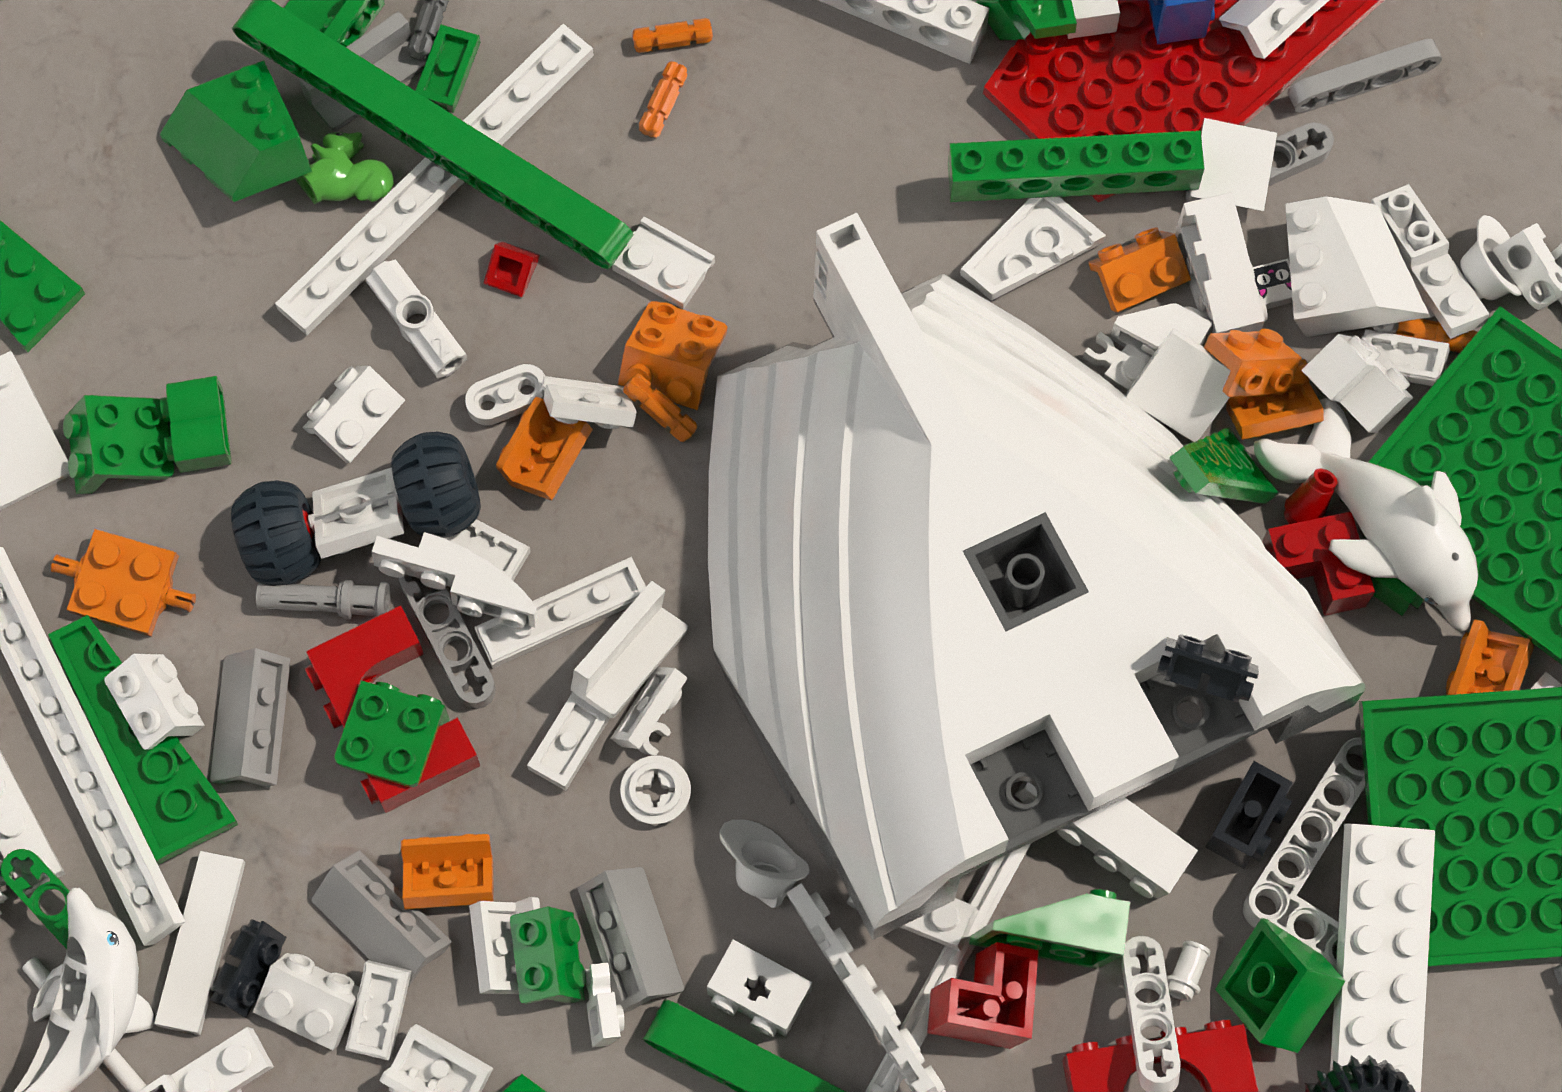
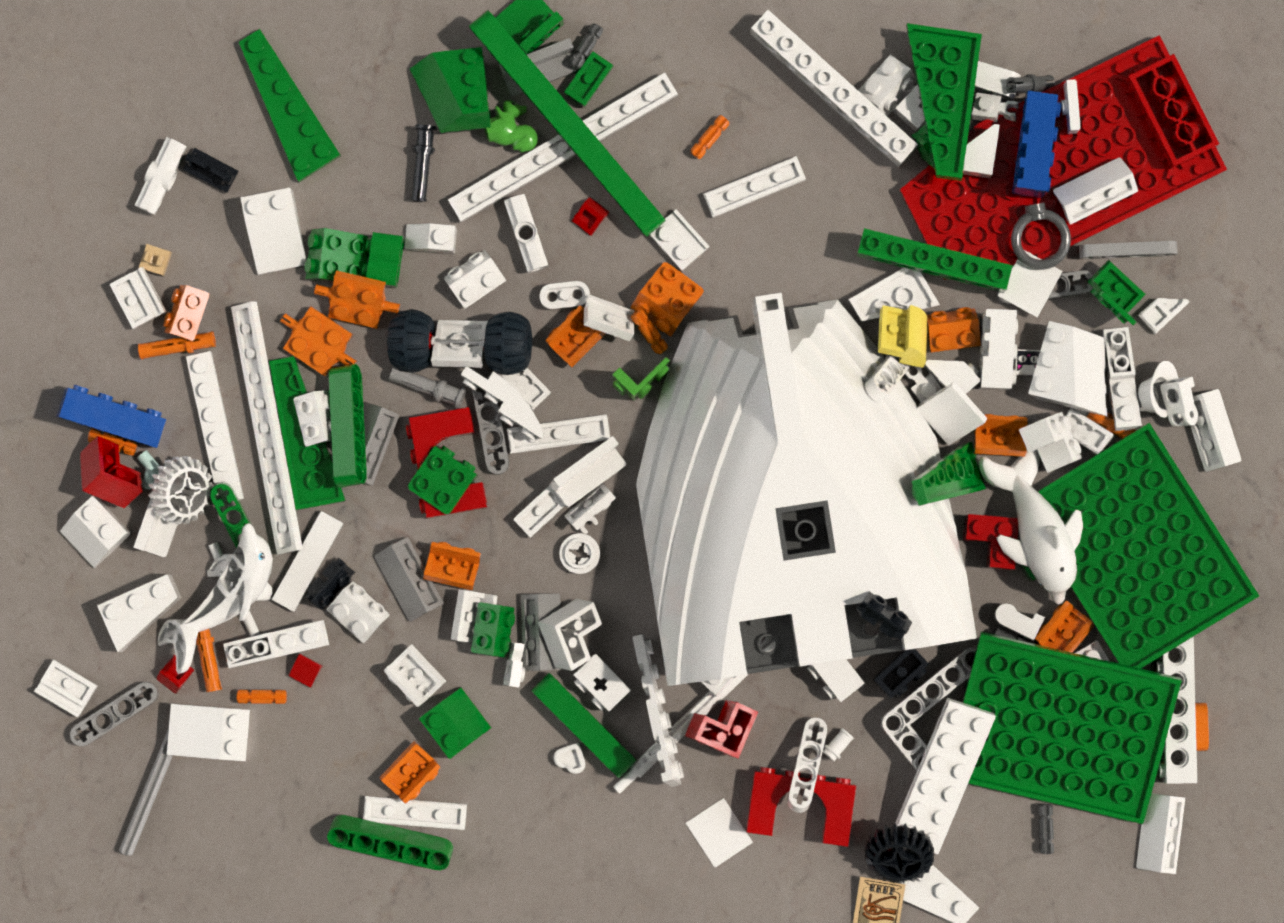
camera: 20 degrees right, 15 degrees up
(168, 494) = (357, 299): none -> orange plate
(206, 695) = (347, 425): none -> green beam
(215, 244) = (423, 150): none -> black pin
(265, 369) = (431, 238): none -> white slope
(378, 1010) = (393, 630): white plate -> none
(660, 498) = (625, 384): none -> bright green bracket
(672, 35) = (727, 97): orange axle -> none
(672, 923) = (565, 632): none -> white brick
(756, 152) = (754, 187): none -> white tile
(763, 861) = (626, 612): white piece -> none
(1063, 349) = (885, 377): none -> white beam
(1067, 289) = (903, 334): none -> light yellow brick
(1074, 931) = (784, 706): slope -> none
(1204, 56) = (1034, 213): none -> dark grey piece
(1256, 361) = (994, 413): orange bracket -> none
(1279, 987) = (882, 771): green slope -> none
(1311, 497) = (999, 502): red cone -> none
(1371, 134) = (1116, 291): none -> green bracket
(1393, 679) = (1008, 617): none -> white leg
(1449, 153) = (1161, 312): none -> white tile

